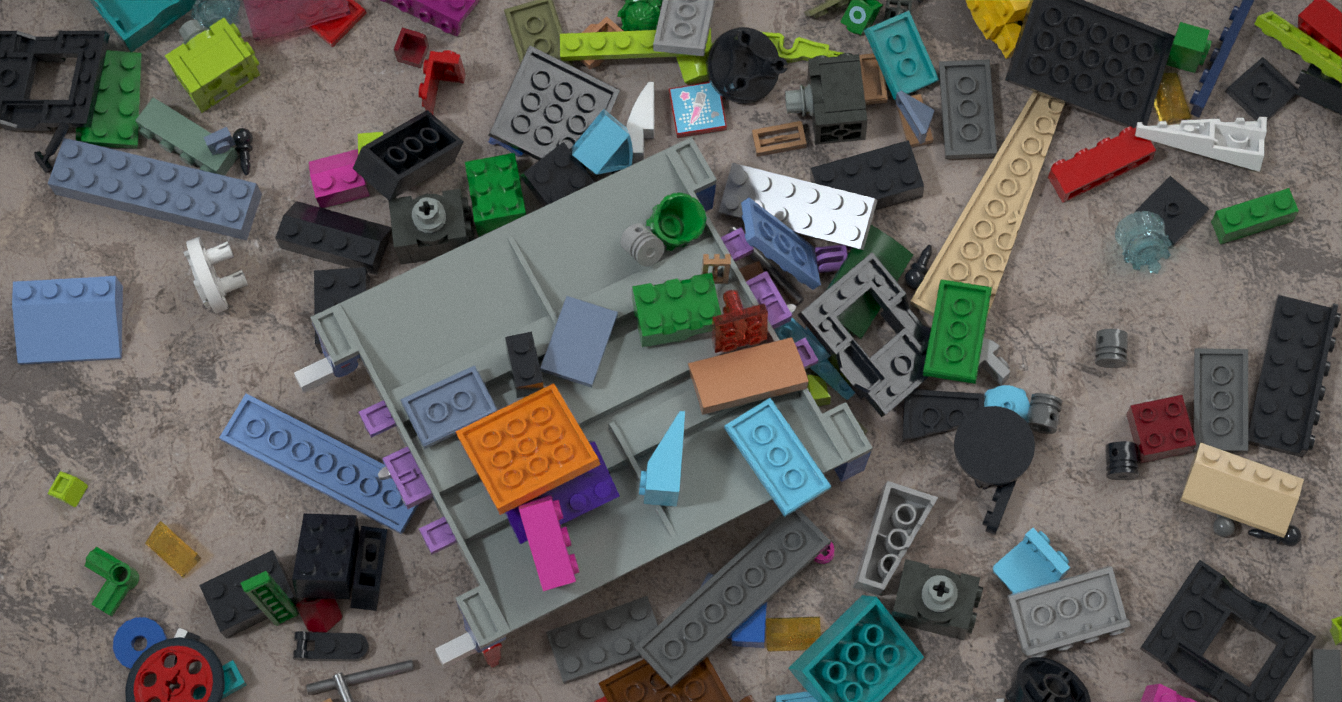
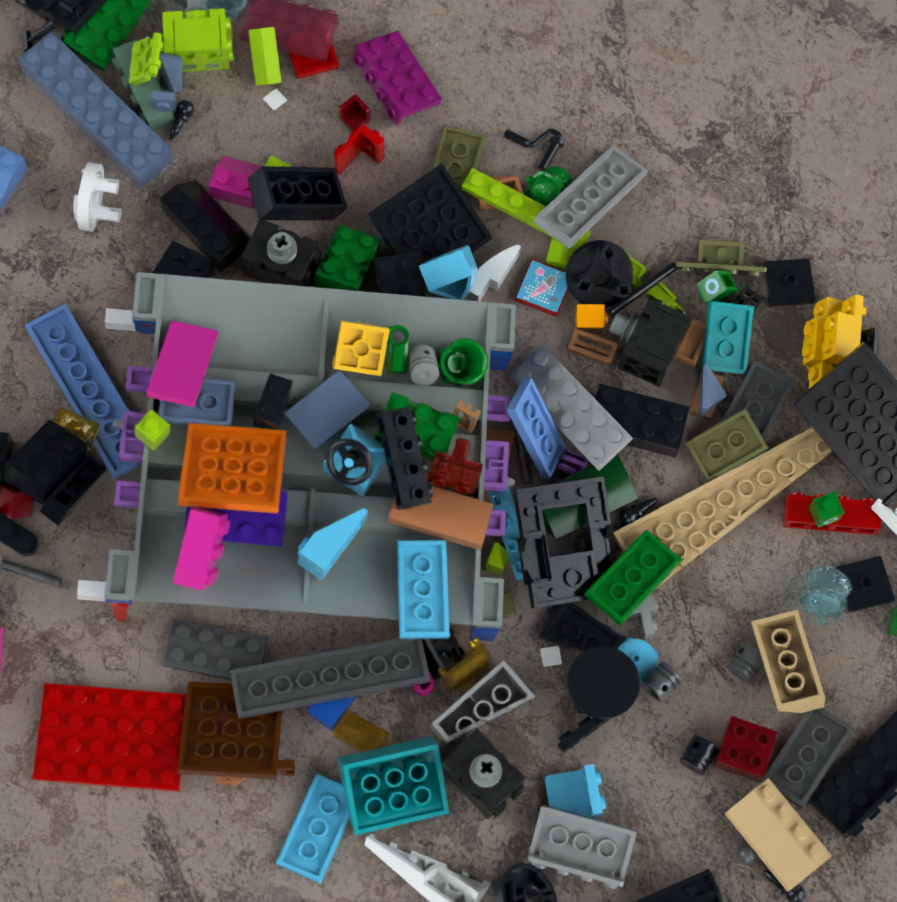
camera: 20 degrees right, 0 degrees up
(176, 111) = (145, 59): none -> lime plate
(207, 109) = (171, 72): none -> sand blue slope
(290, 41) = (265, 56): none -> lime piece
(323, 79) = (275, 99): none -> white sticker
(337, 502) = (77, 425): none -> clear yellow slope
(413, 378) = (182, 364): none -> dark pink tile
(425, 458) = (152, 430): none -> lime brick
(574, 262) = (360, 347): none -> yellow piece
(587, 241) = (397, 352): none -> green piece
(638, 371) = (355, 460): none -> piece
(686, 341) = (404, 458): none -> black brick
(760, 110) = (590, 316): none -> light orange brick
(793, 56) = (642, 289): none -> black bar
(827, 512) = (442, 654): none -> black bracket
(860, 493) = (468, 667): none -> clear yellow piece
(925, 452) = (551, 656): none -> white sticker
(964, 156) = (726, 445): none -> olive tile
(1097, 161) = (826, 509): none -> green brick
(1152, 323) = (789, 663): none -> tan slope

